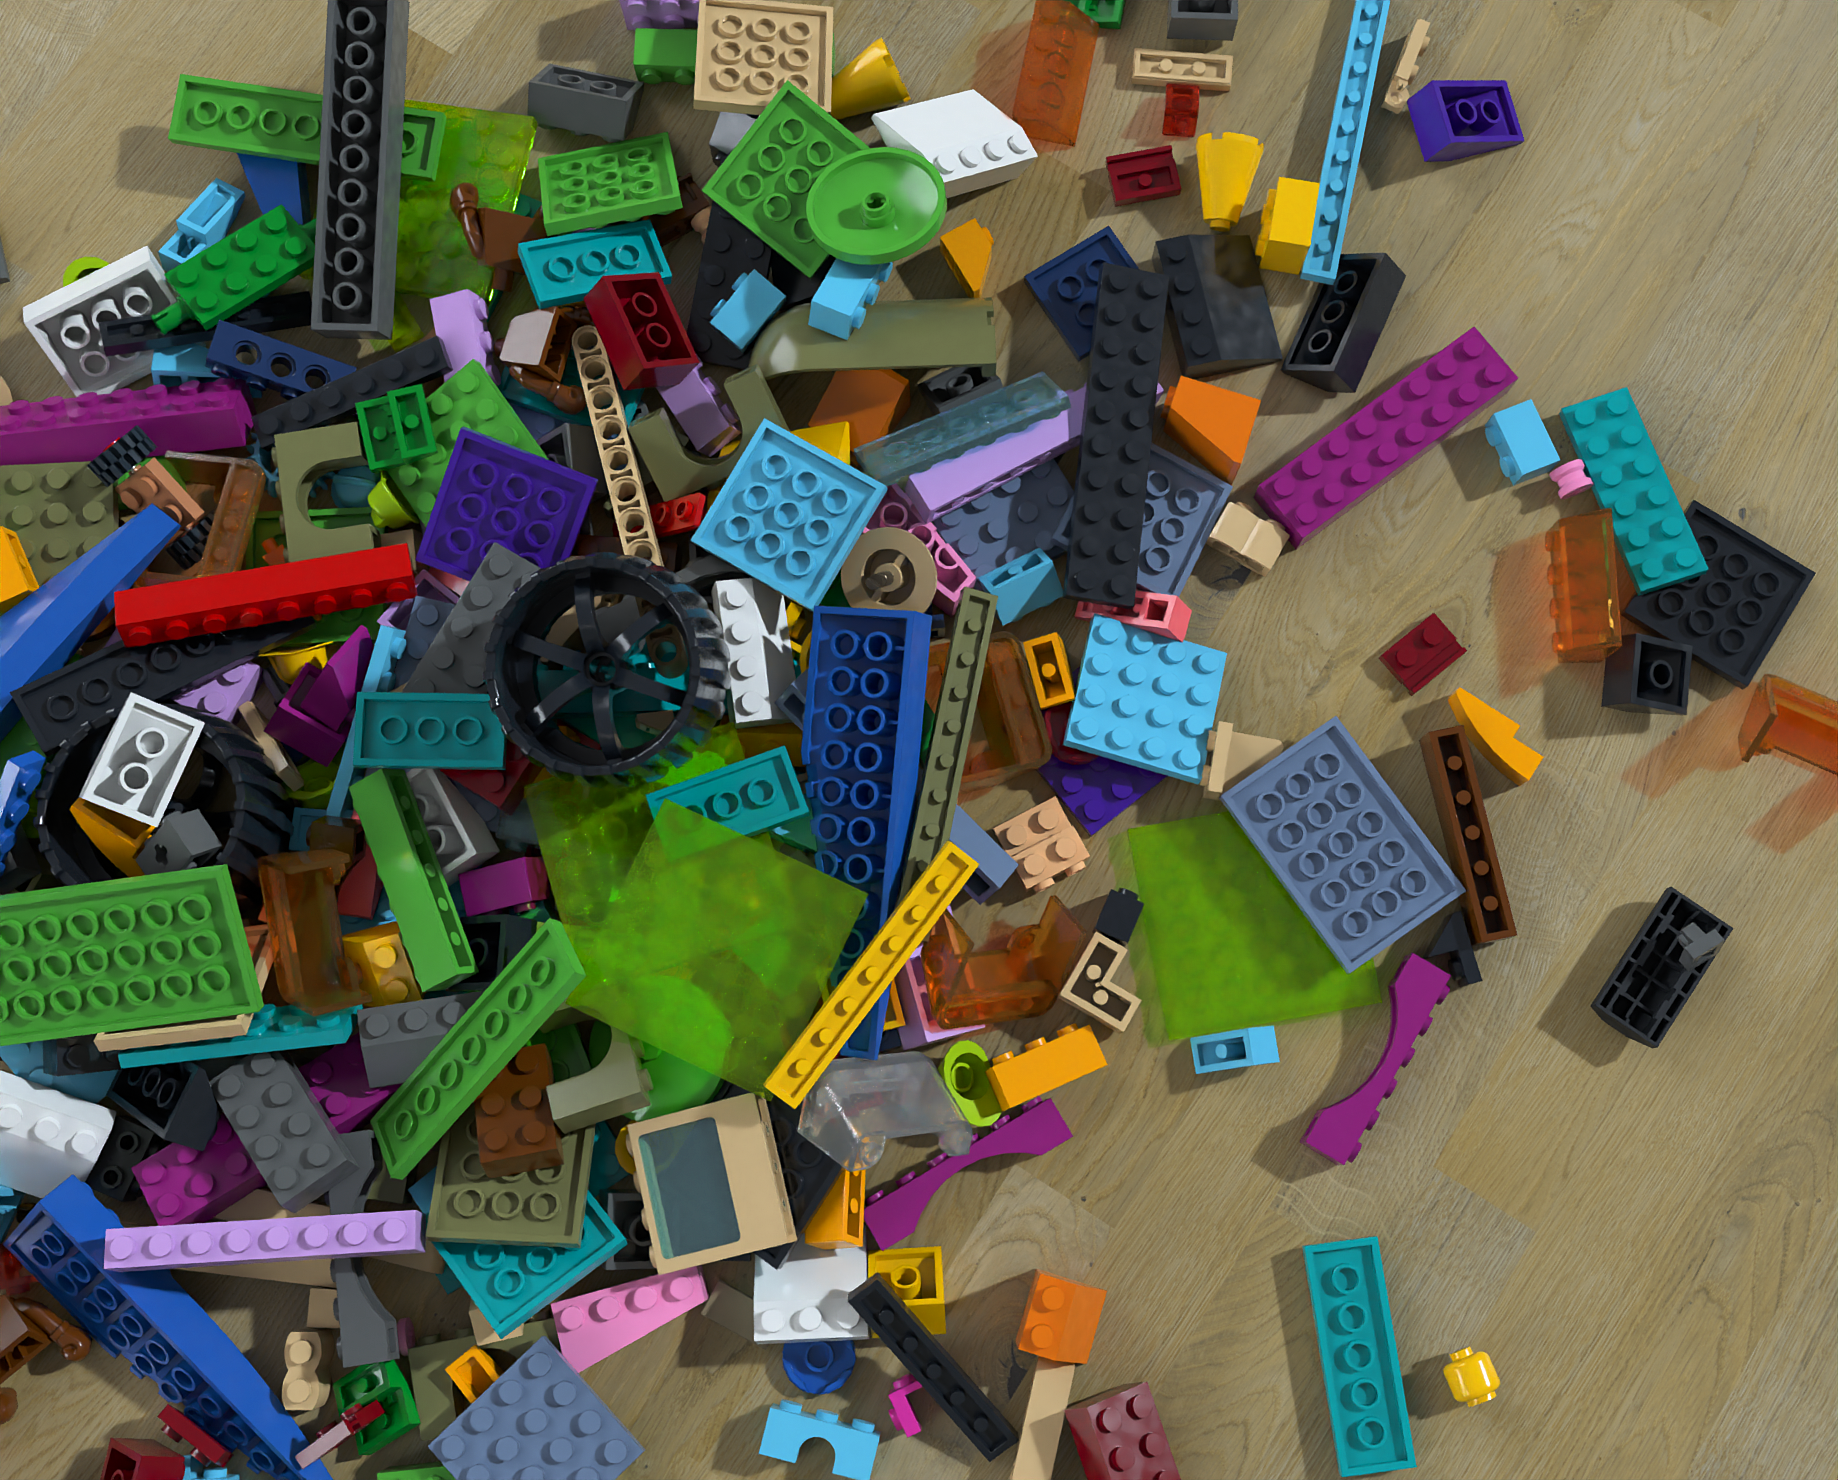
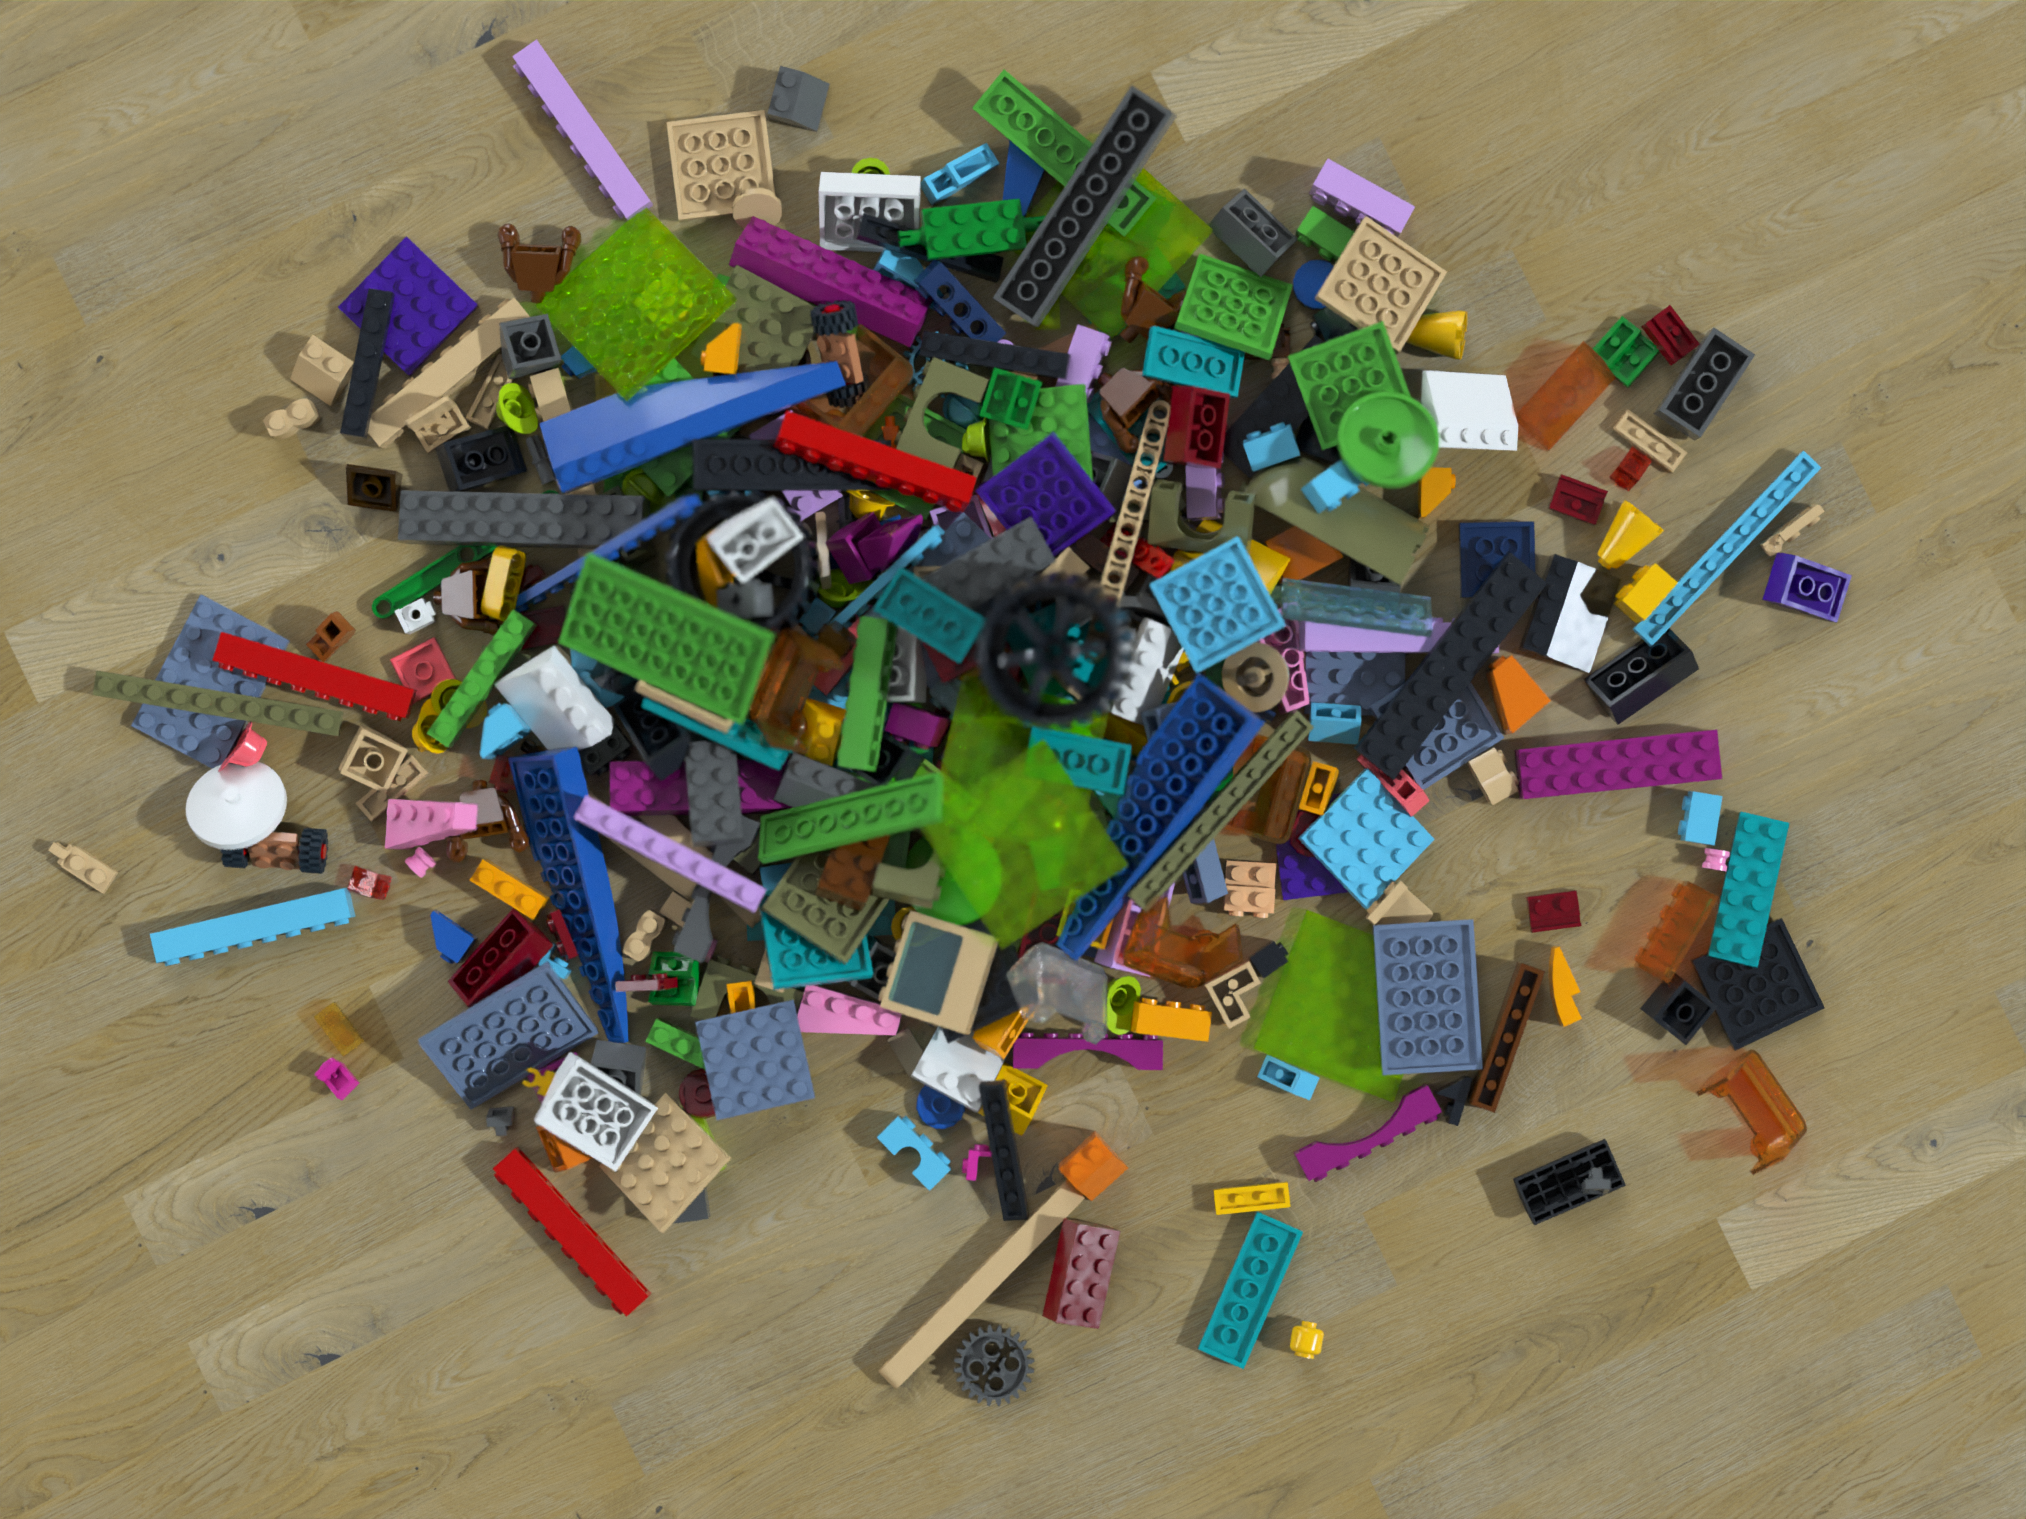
camera: 30 degrees right, 10 degrees up
(95, 1416) = (509, 889): none -> light orange brick
(688, 125) = (1308, 282): none -> blue tile
(870, 974) = (1103, 913): yellow plate -> none
(1285, 1233) = (1251, 1198): none -> yellow plate

